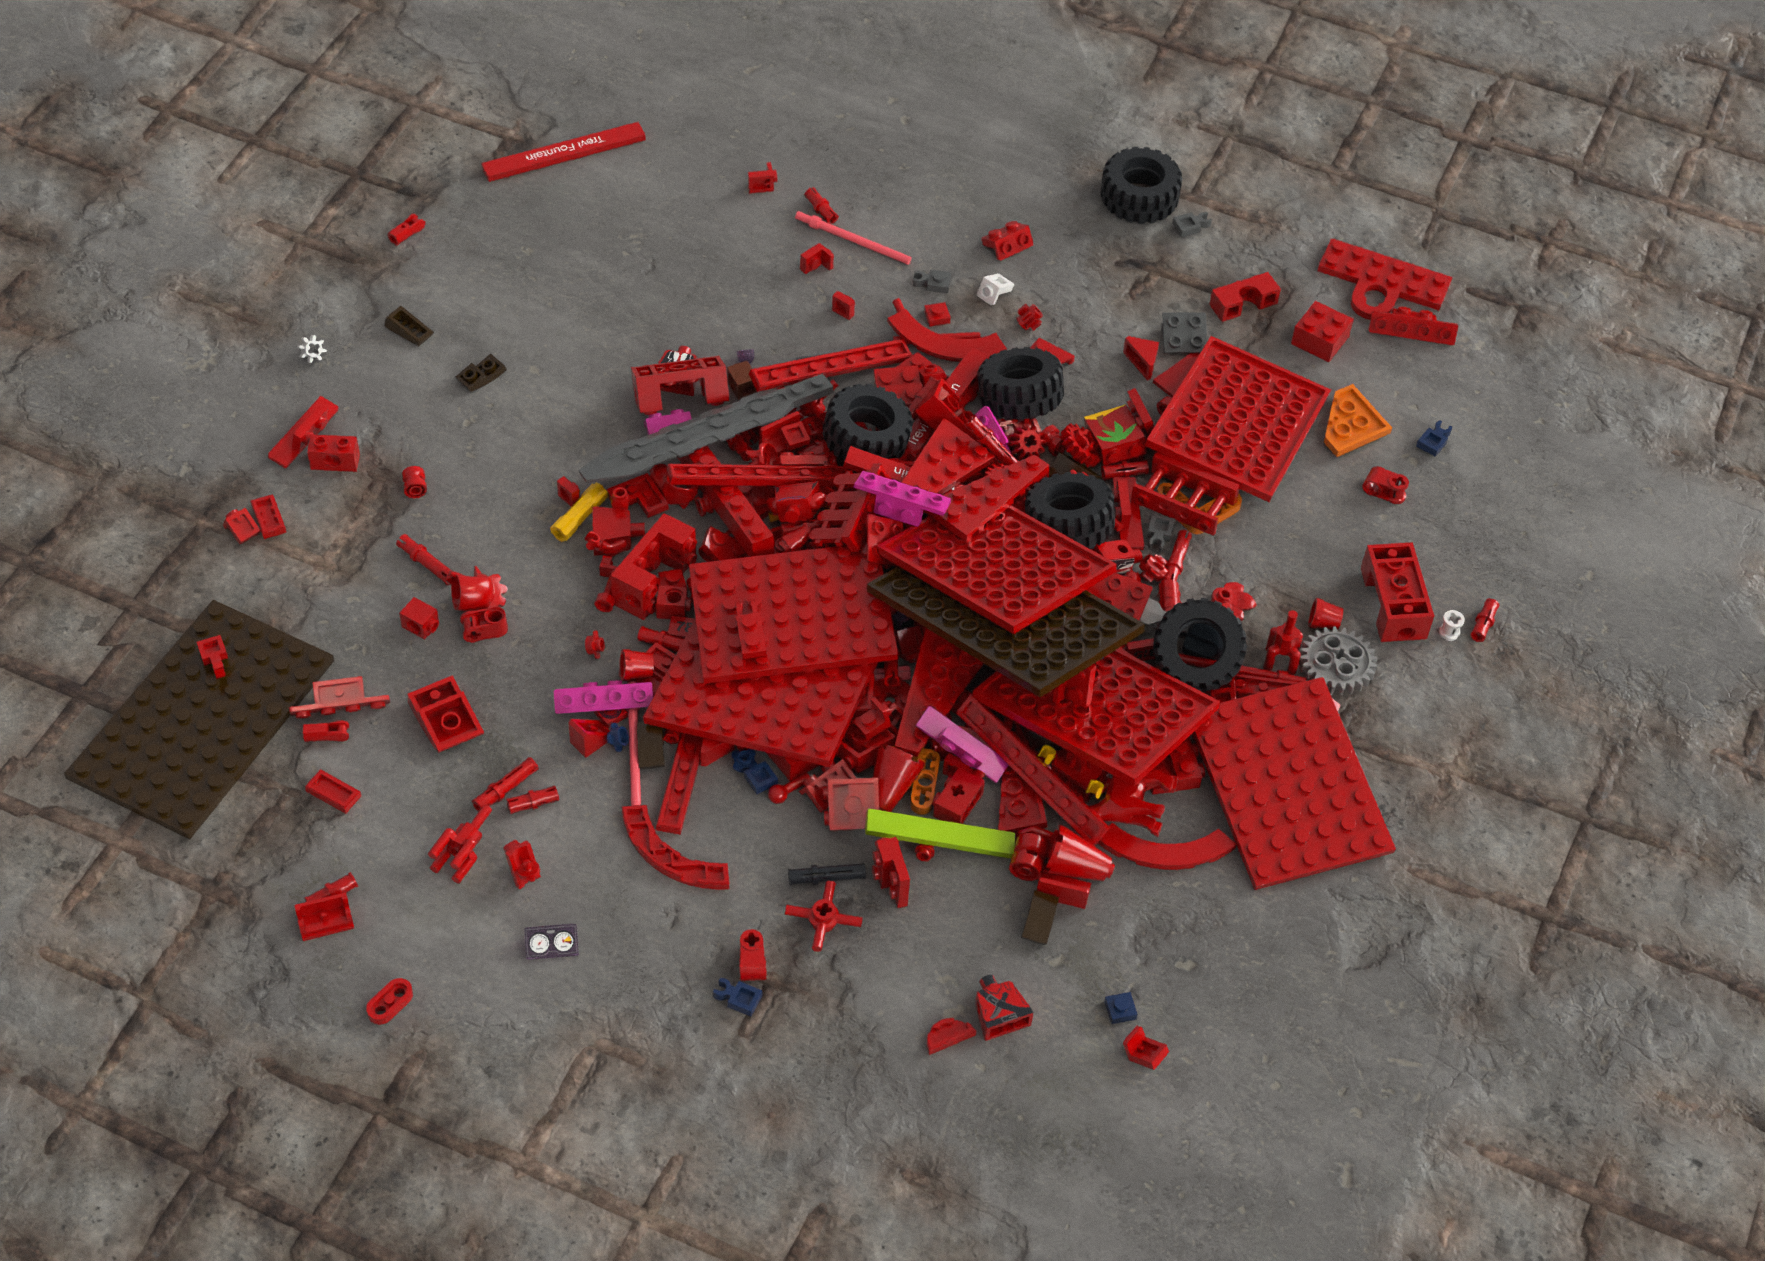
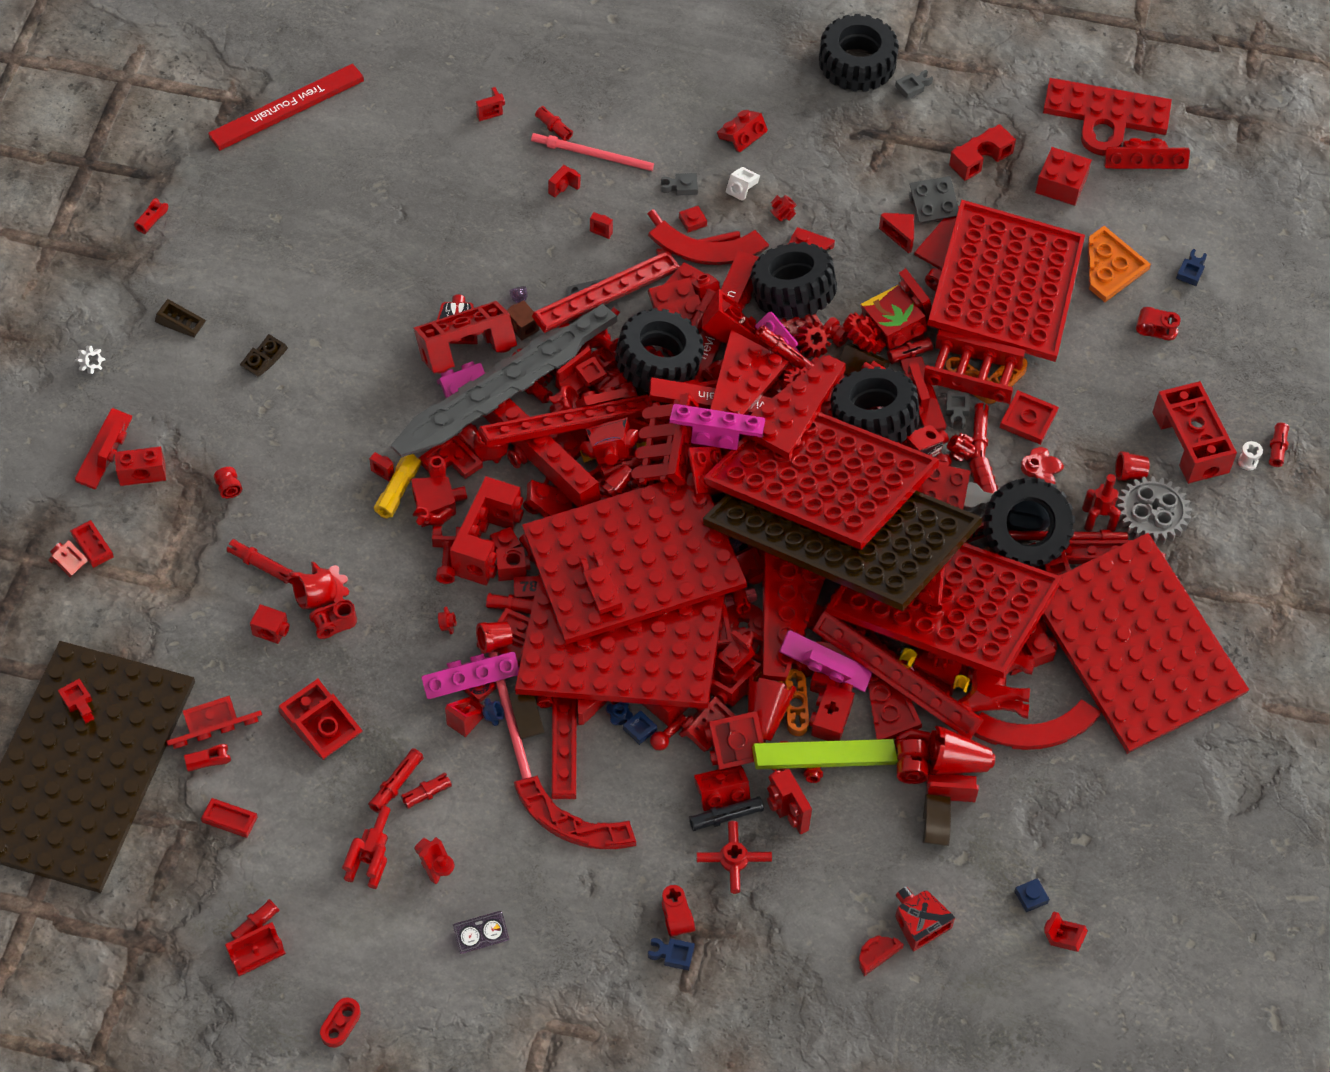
camera: 10 degrees left, 5 degrees up
(829, 848) = (722, 787): none -> red bracket
(1231, 552) = (1029, 417): none -> red plate

